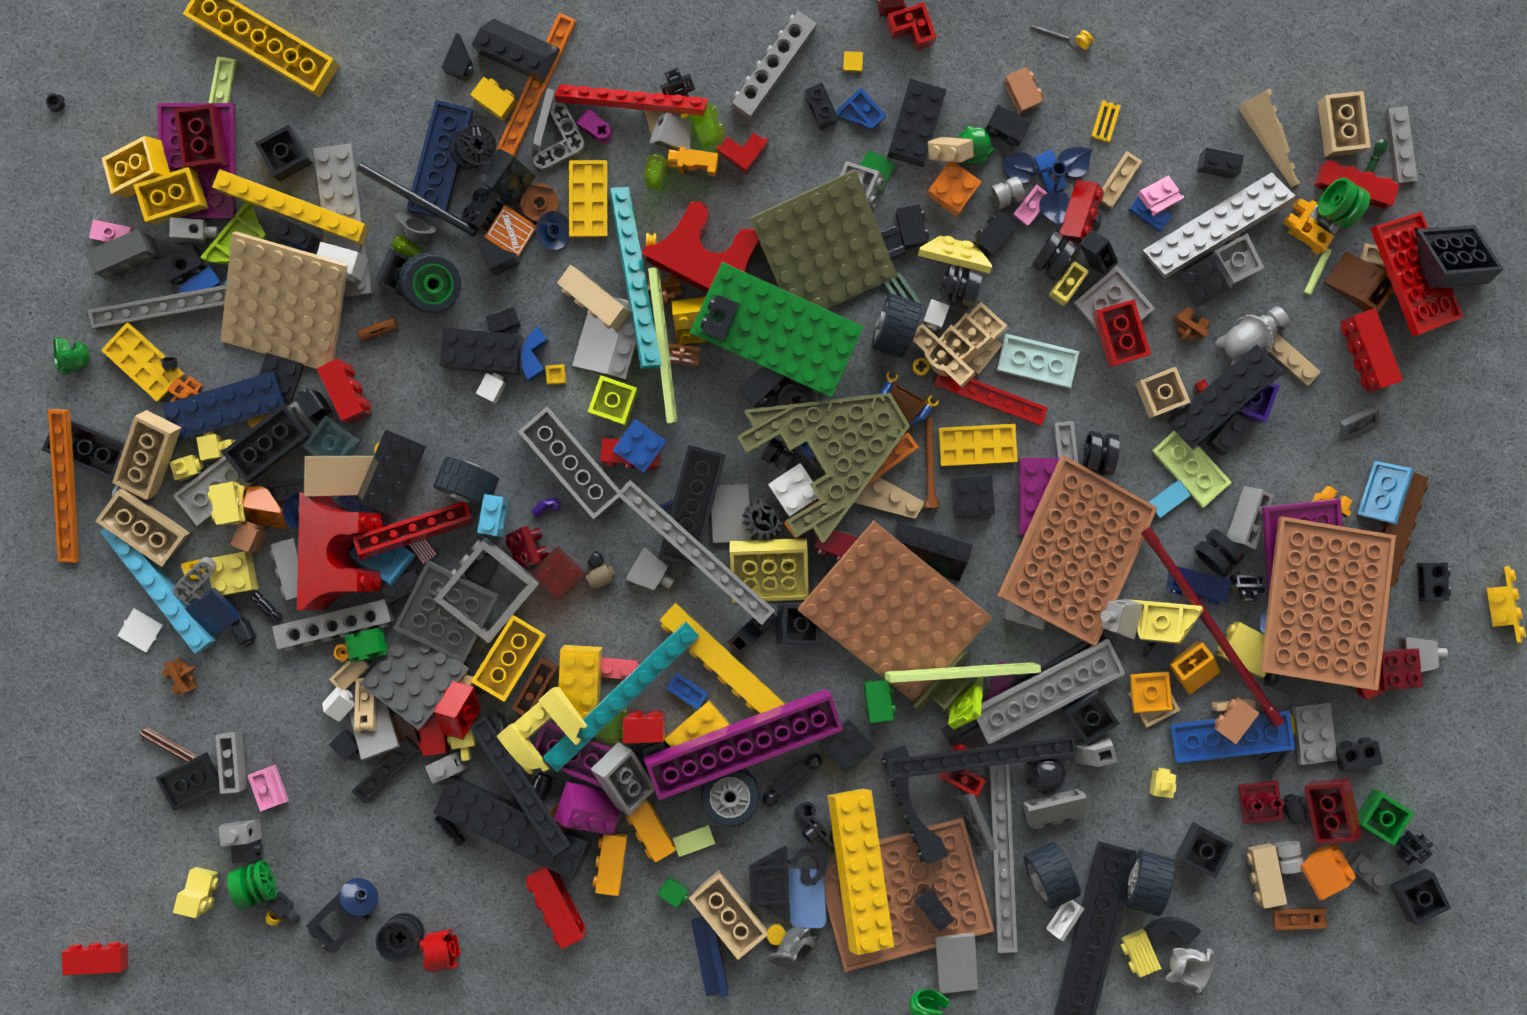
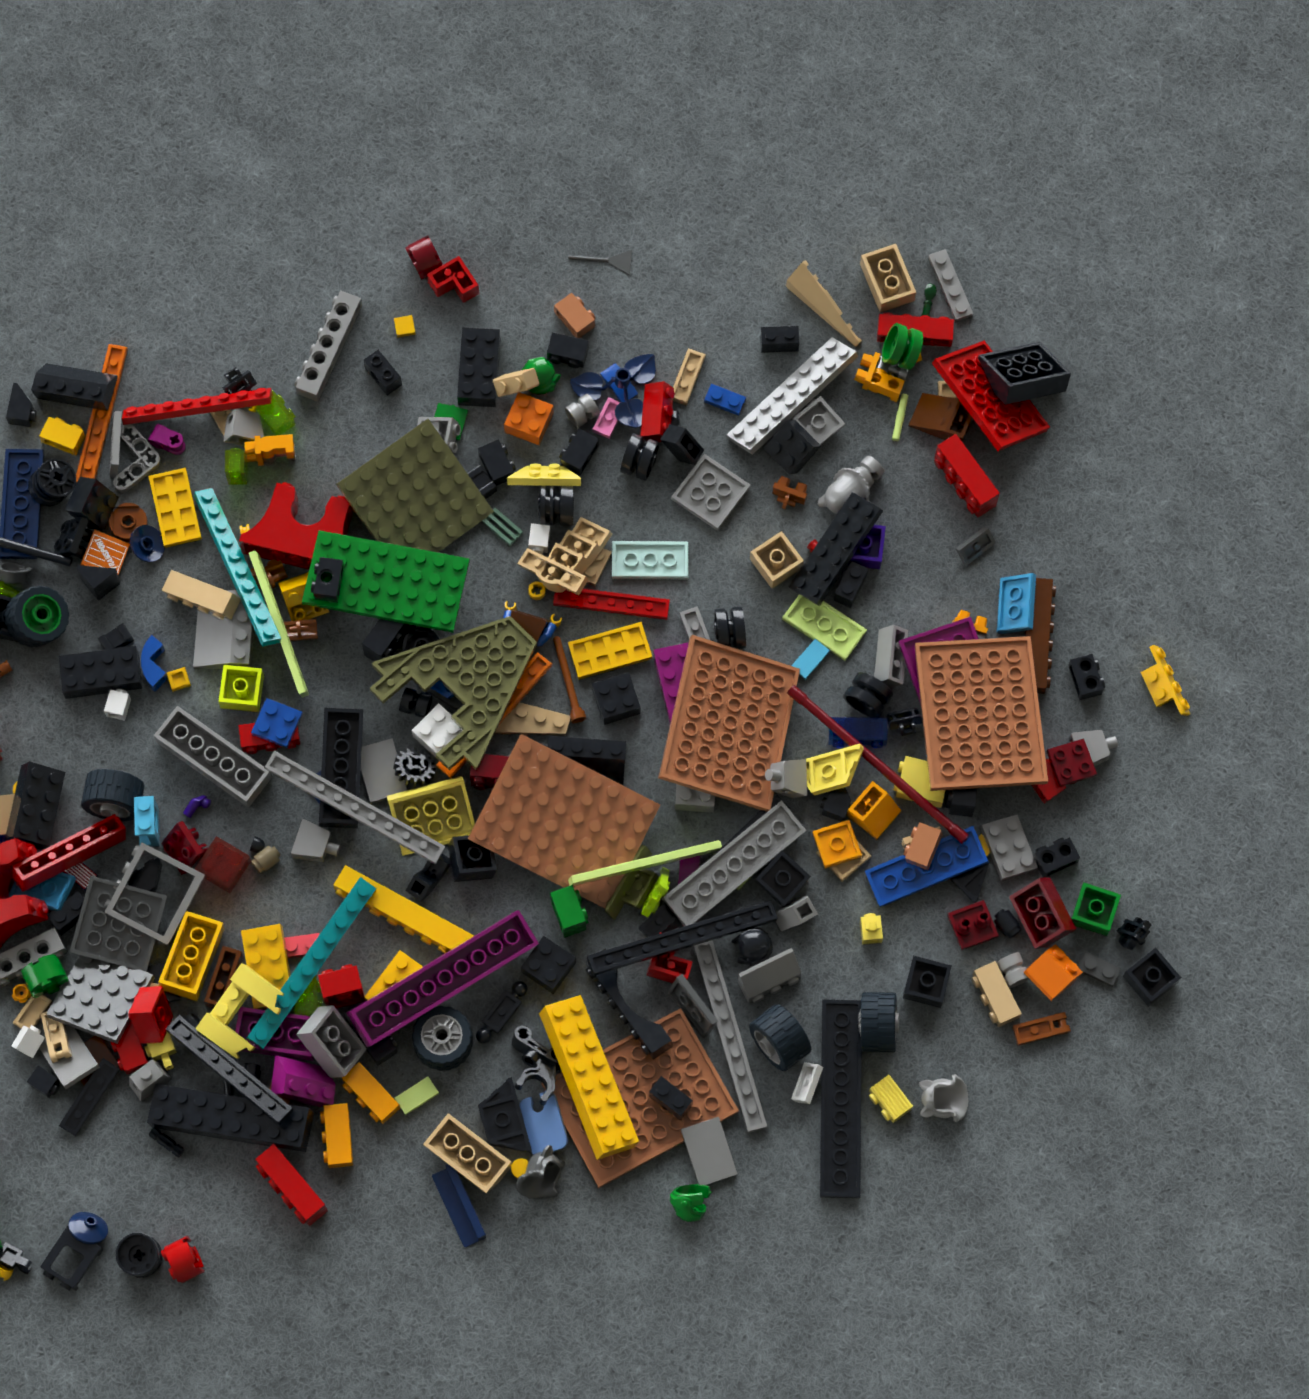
camera: 10 degrees left, 15 degrees down
(673, 892) = (407, 1148): green brick -> none
(687, 690) = (376, 949): blue plate -> none
(743, 157) = (317, 436): red panel -> none
(861, 110) = (423, 368): blue wing -> none
(896, 326) = (502, 554): black wheel -> none
(1068, 283) = (660, 480): light yellow brick -> none
(1084, 39) = (622, 257): yellow bush -> none
(1110, 106) = (661, 311): yellow tile -> none
(1121, 333) = (721, 512): red brick -> none
(1160, 195) = (730, 381): bright pink plate -> none
(1161, 927) = (924, 1064): black brick -> none
(1293, 361) = (896, 504): tan plate -> none

